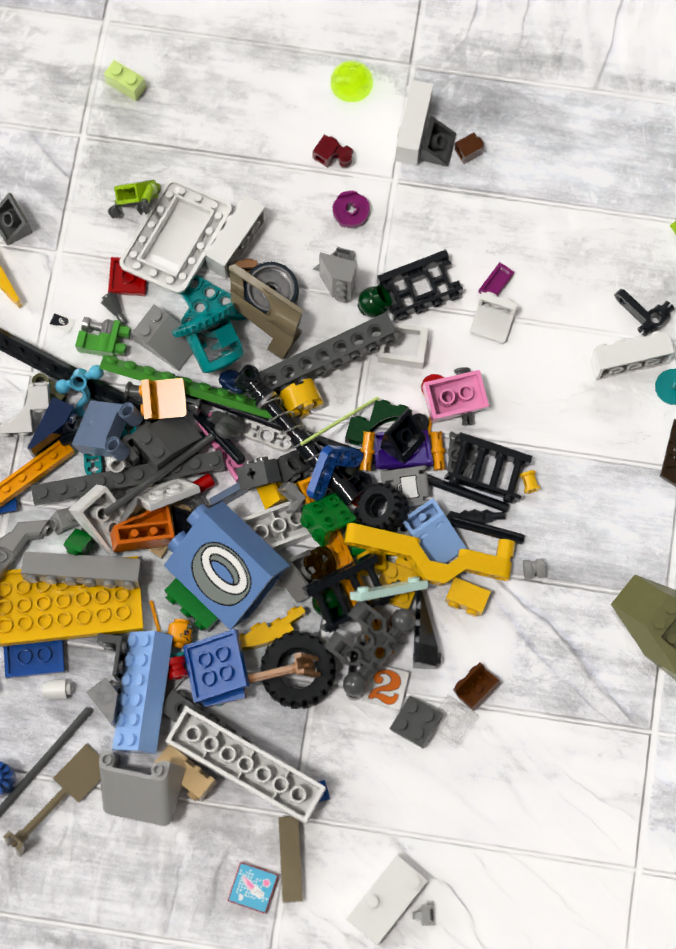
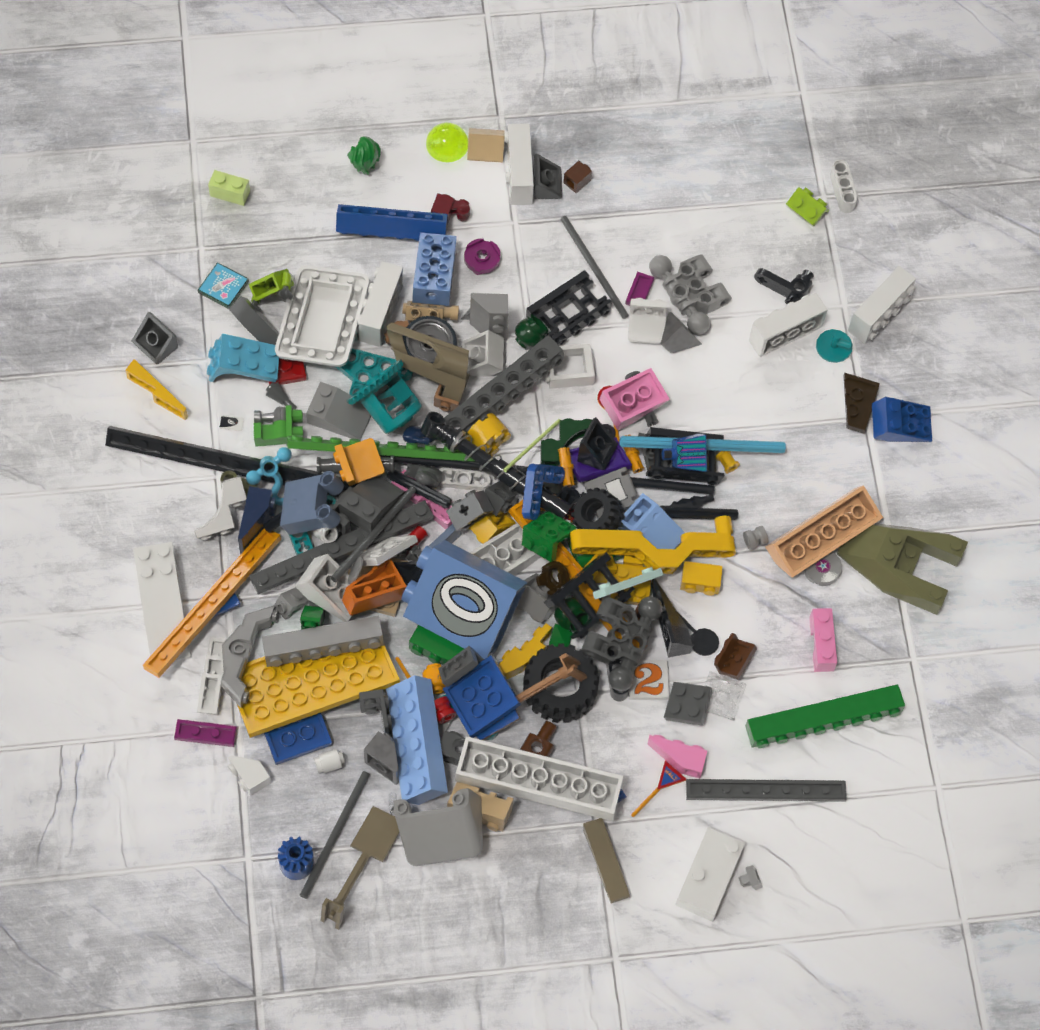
camera: 20 degrees left, 10 degrees down
(88, 262) = (242, 357): none -> medium azure bracket
(92, 180) = (223, 285): none -> tile
(110, 226) = (254, 321): none -> dark grey slope
(202, 631) = (459, 666): none -> dark grey bracket
(253, 887) = (577, 897): medium azure tile -> none
(265, 77) = (365, 154): none -> green hair
(265, 721) = (540, 740): none -> reddish brown piece
(268, 353) = (444, 403): none -> medium nougat bracket
(271, 154) = (388, 222): none -> blue brick
(280, 255) = (413, 312): none -> tan brick
(292, 493) = (509, 522): light grey bracket -> none
(298, 213) = (430, 288): none -> medium blue brick
(312, 622) = (560, 635): none -> green slope
(322, 312) = (485, 354): none -> white slope
(377, 790) = (668, 777): none -> piece
(388, 92) = (485, 145): none -> tan slope
(397, 777) = (684, 758): none -> bright pink slope
(452, 659) = (705, 639): none -> black piece
(458, 246) = (593, 265): none -> dark grey piece
(467, 828) = (766, 790): none -> dark grey tile
(489, 468) = (688, 453): none -> torso
(508, 461) = (711, 444): none -> medium azure axle
(519, 338) = (677, 336): none -> flat silver slope
(547, 770) = (825, 715): none -> green brick
(559, 273) = (691, 299): none -> light grey connector
(569, 691) = (824, 640): none -> bright pink arch
(591, 615) = (824, 571): none -> light grey tile
(603, 581) = (824, 531): none -> light nougat slope

